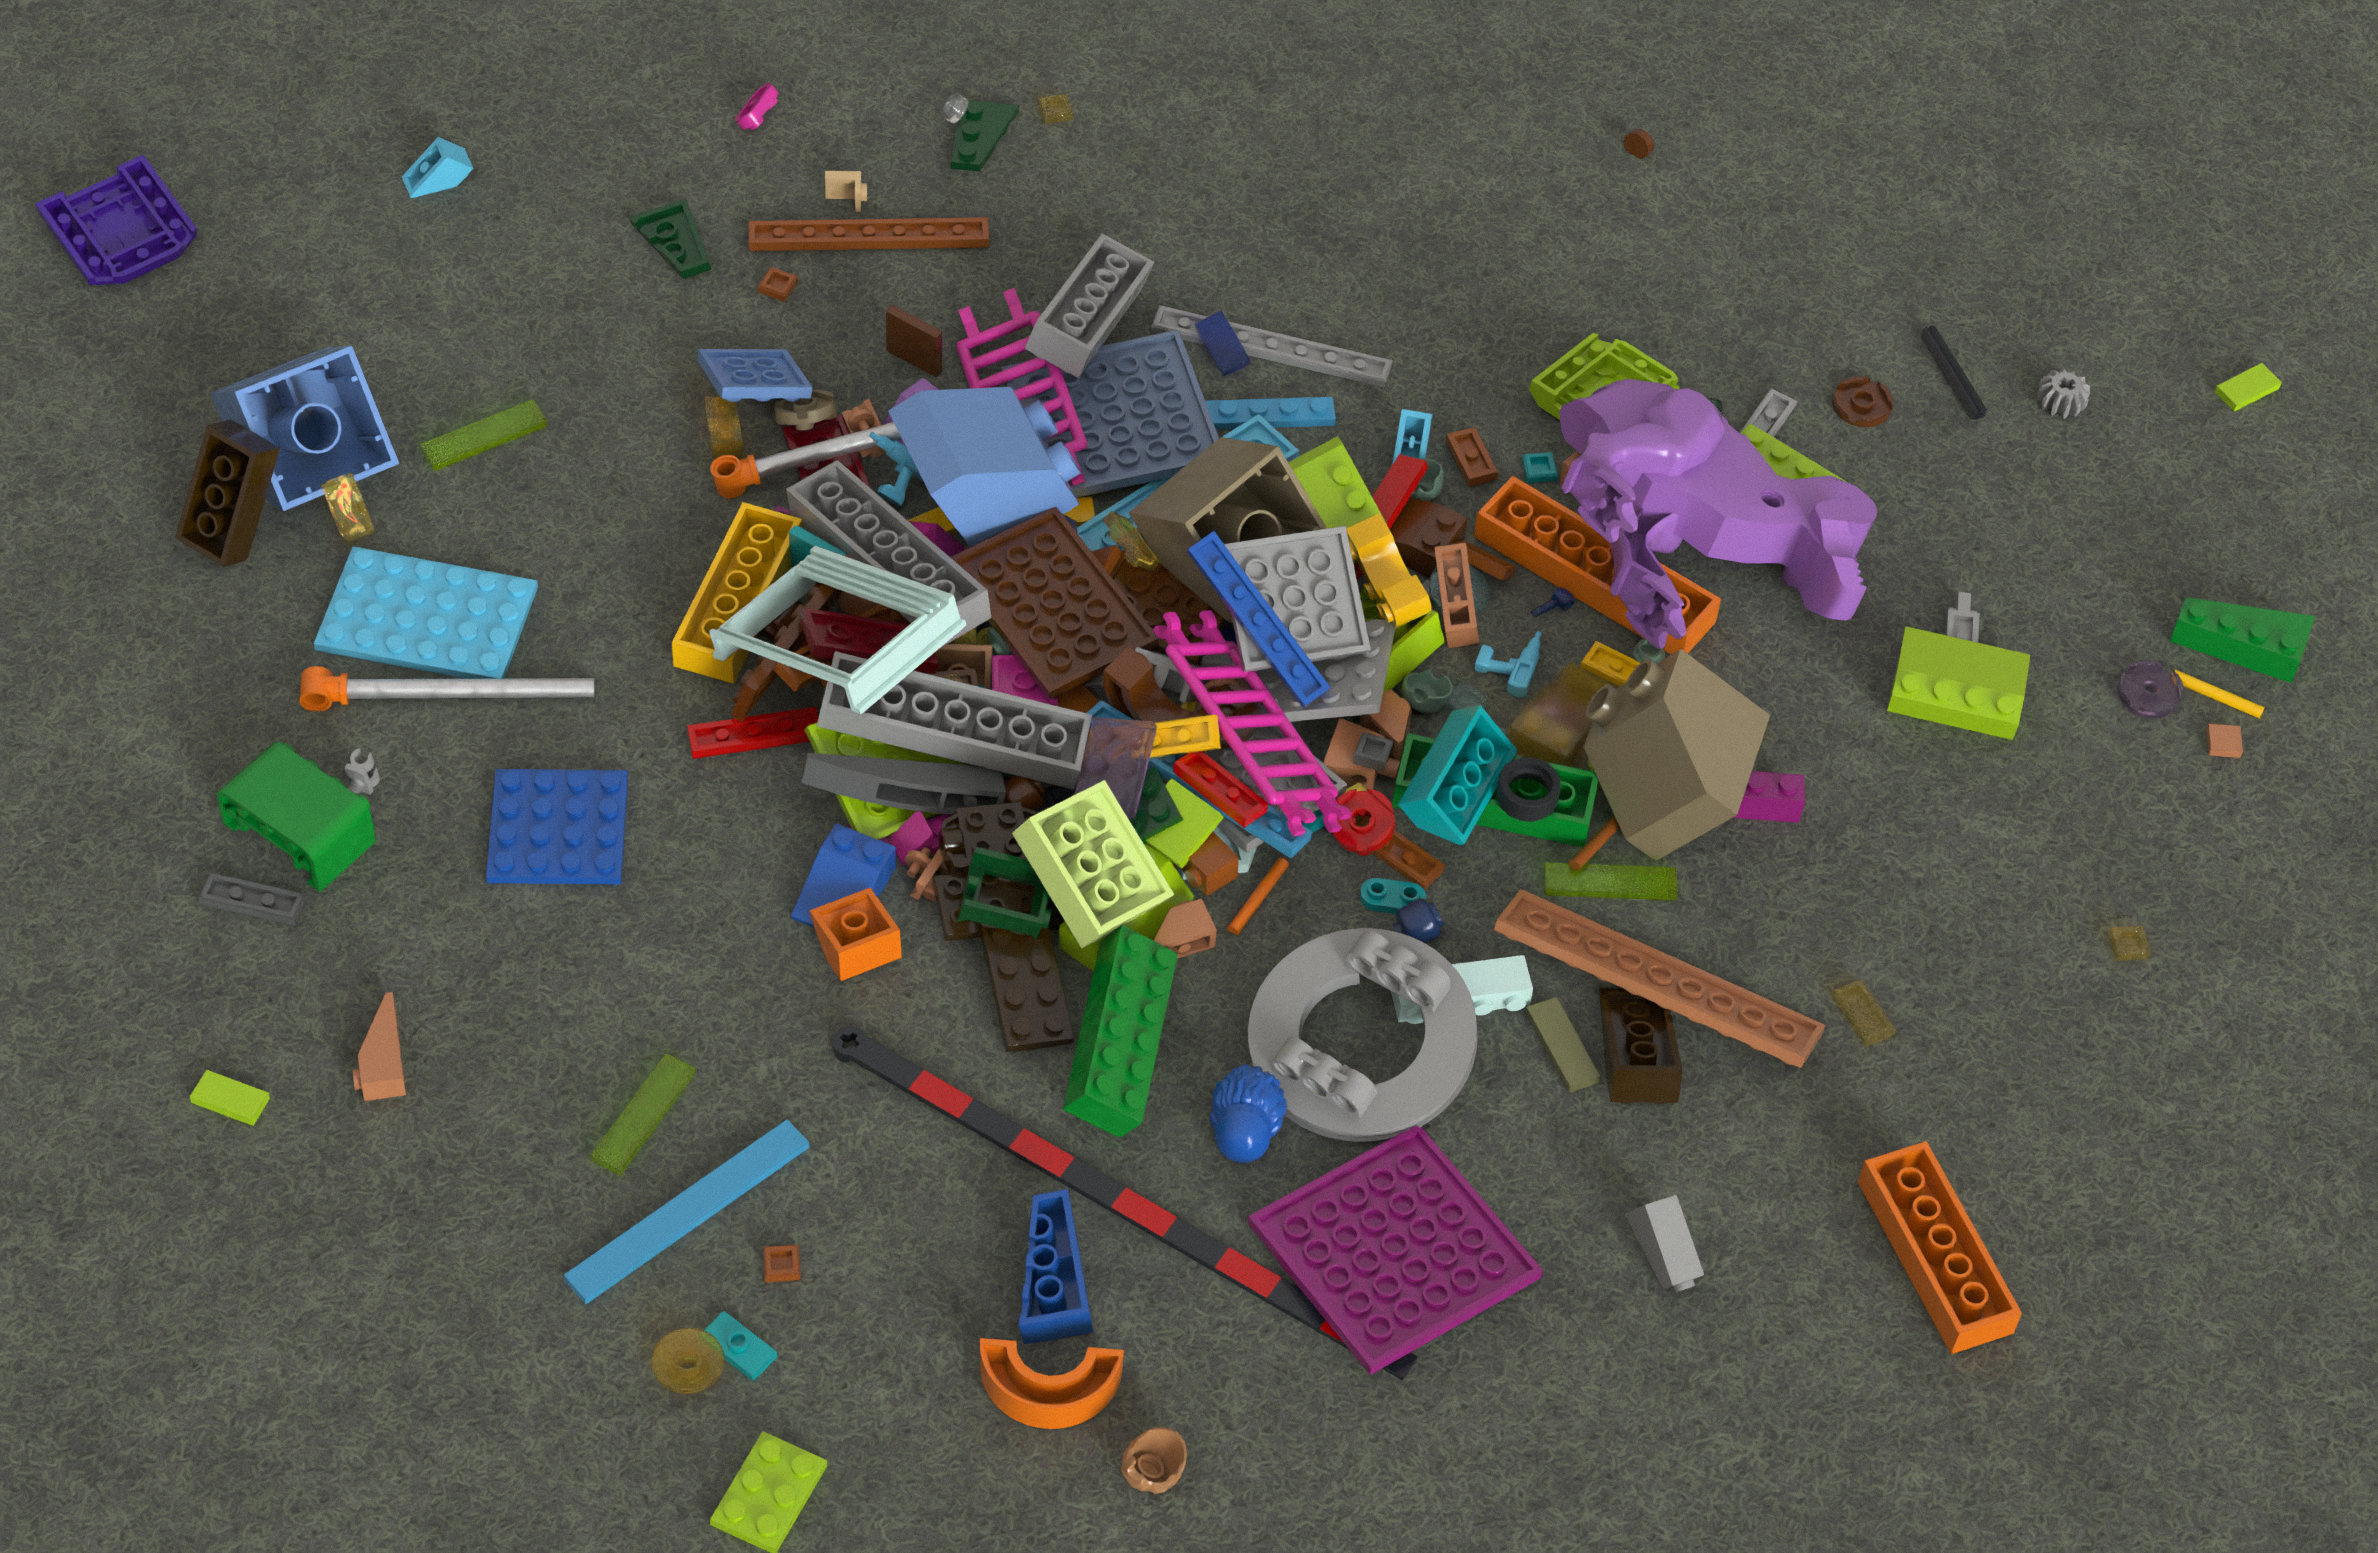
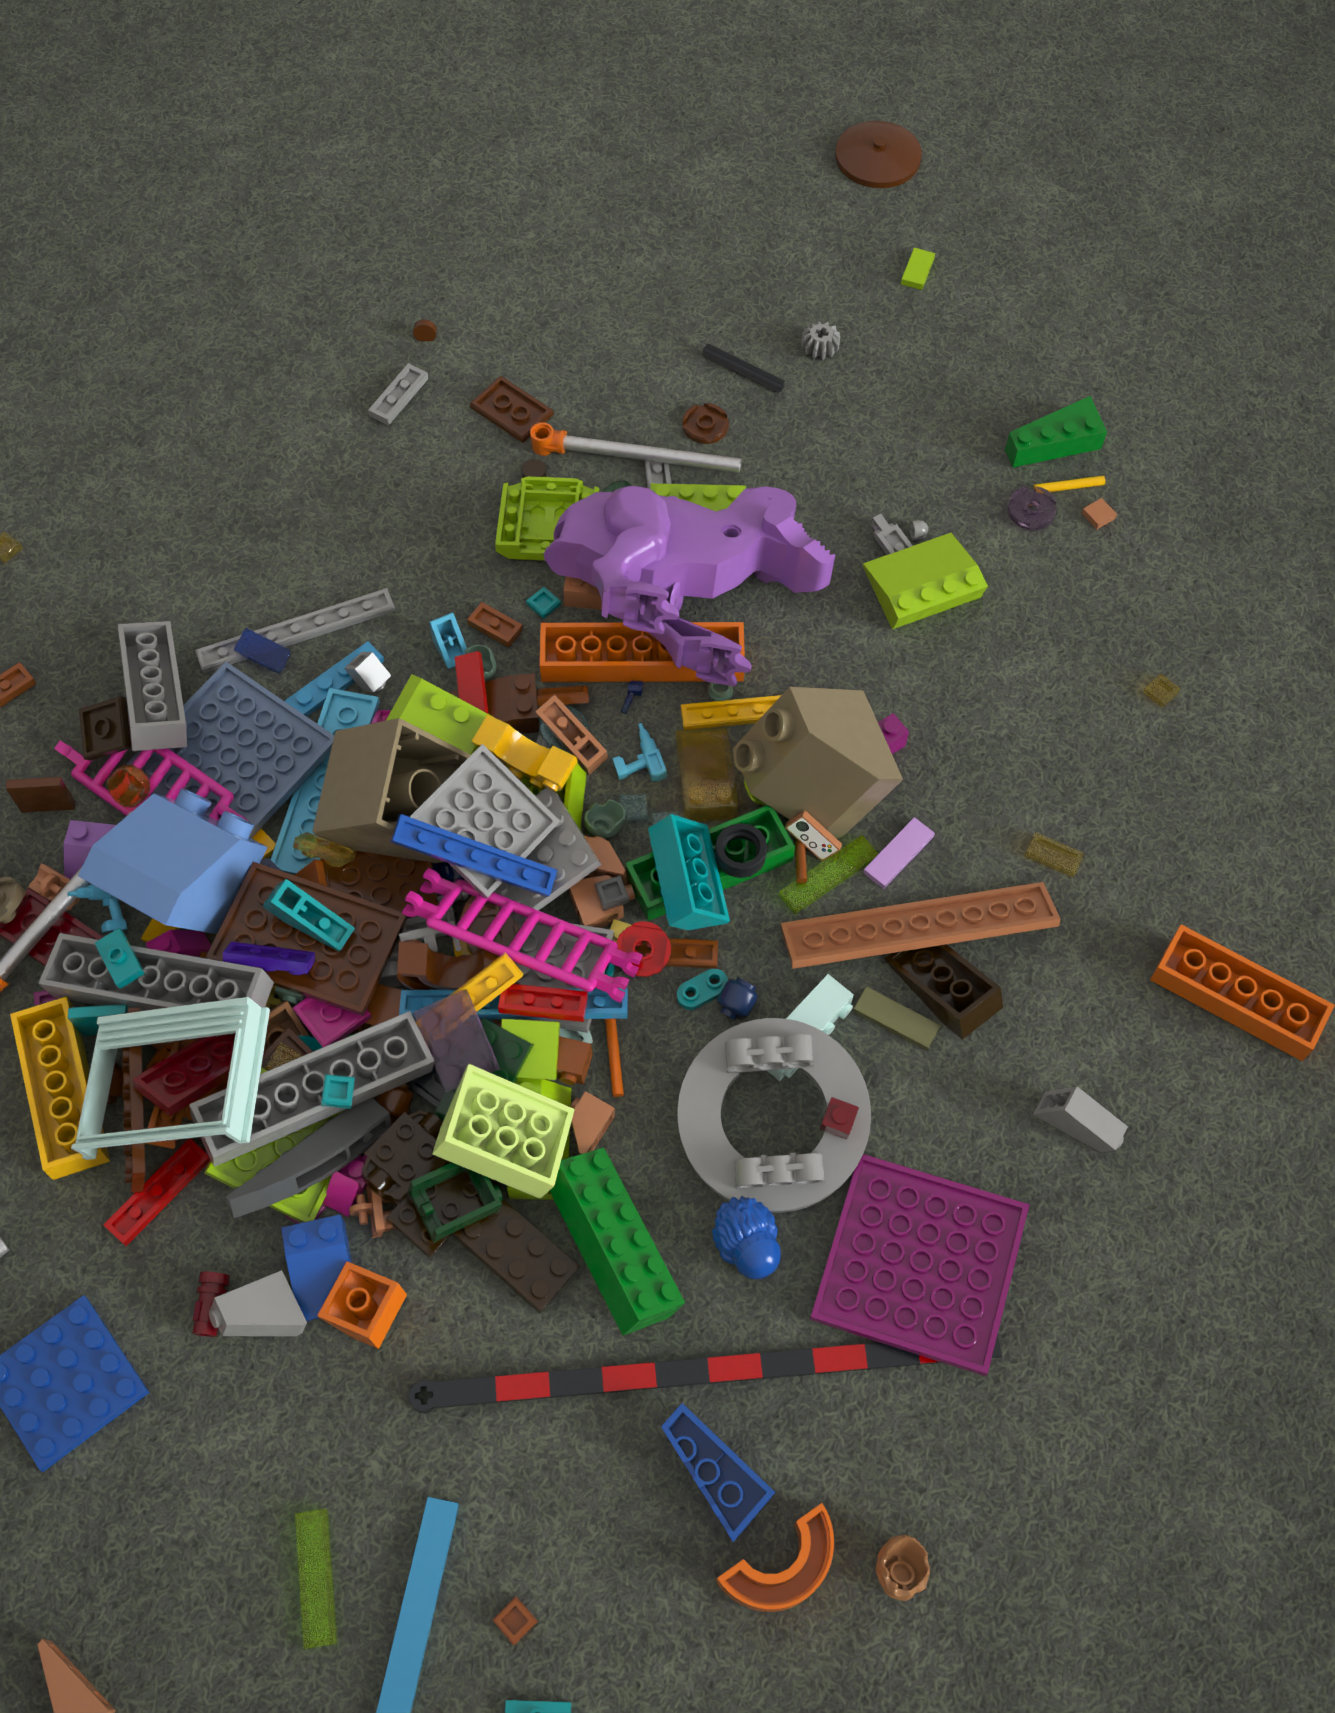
camera: 35 degrees left, 10 degrees up
(725, 848) = (212, 1286): none -> dark red axle
(763, 875) = (259, 1309): none -> light grey slope
(871, 508) = (119, 958): none -> teal plate
(971, 731) = (338, 1091): none -> teal tile
(998, 372) = (128, 785): none -> clear orange hair
(1003, 592) = (269, 958): none -> dark purple plate
(1014, 316) = (105, 728): none -> dark brown tile
(1066, 577) = (308, 915): none -> teal slope
(1307, 422) = (368, 672): none -> brick
(1416, 1065) = (839, 1118): none -> dark red brick
(1559, 188) = (398, 394): none -> light grey plate
(1620, 831) = (813, 835): none -> tile
(1639, 338) = (534, 468): none -> dark brown tile
(1666, 270) = (511, 408): none -> reddish brown tile
(1675, 320) = (547, 440): none -> flat silver piece
(1700, 908) = (898, 853): none -> lavender tile
(2002, 635) = (918, 529): none -> light grey hinge
(2313, 247) = (878, 154): none -> reddish brown dish

